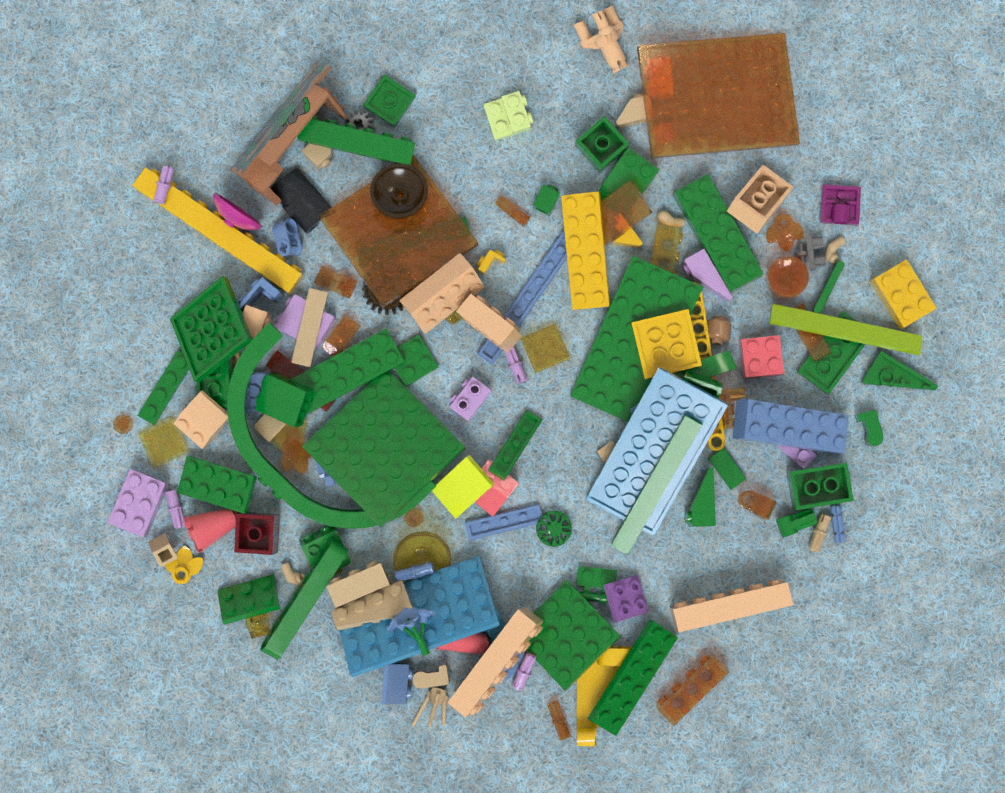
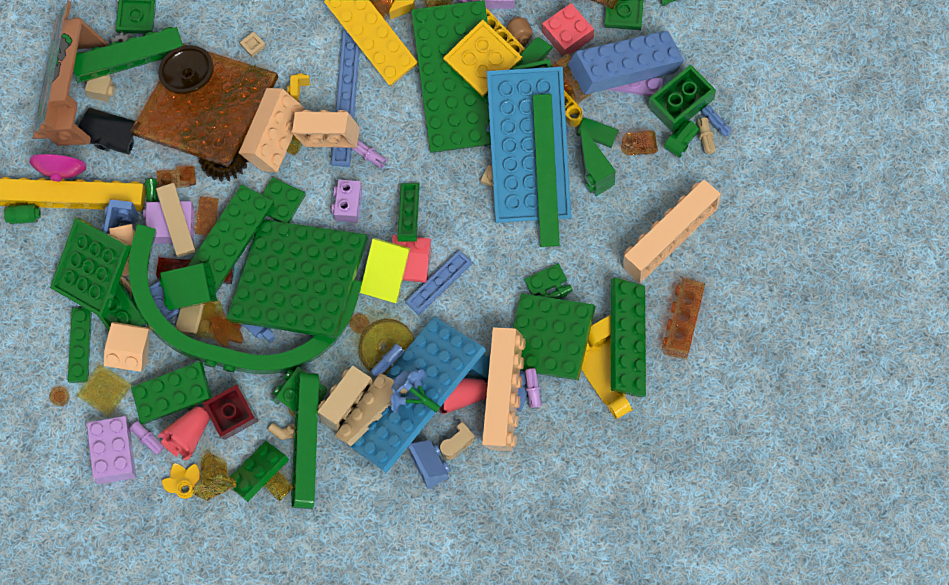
camera: 25 degrees left, 15 degrees down
(162, 550) = (156, 474): tan brick -> none
(183, 234) = (22, 214): none -> green head
(210, 581) = (213, 478): none -> clear yellow tile
(286, 237) = (114, 164): medium blue piece -> none
(309, 277) = (151, 192): none -> green pin
(437, 697) = (472, 455): tan plant -> none
(475, 194) = (252, 44): none -> tan plate
(512, 211) = (291, 39): clear orange axle -> none
(545, 348) = (385, 127): clear yellow tile -> none
(546, 199) = (314, 14): green brick -> none
(554, 528) = (484, 261): green wheel -> none
(558, 720) = (588, 412): clear orange axle -> none
(625, 598) = (580, 279): medium lavender plate -> none
(872, 427) = (693, 32): green leg -> none

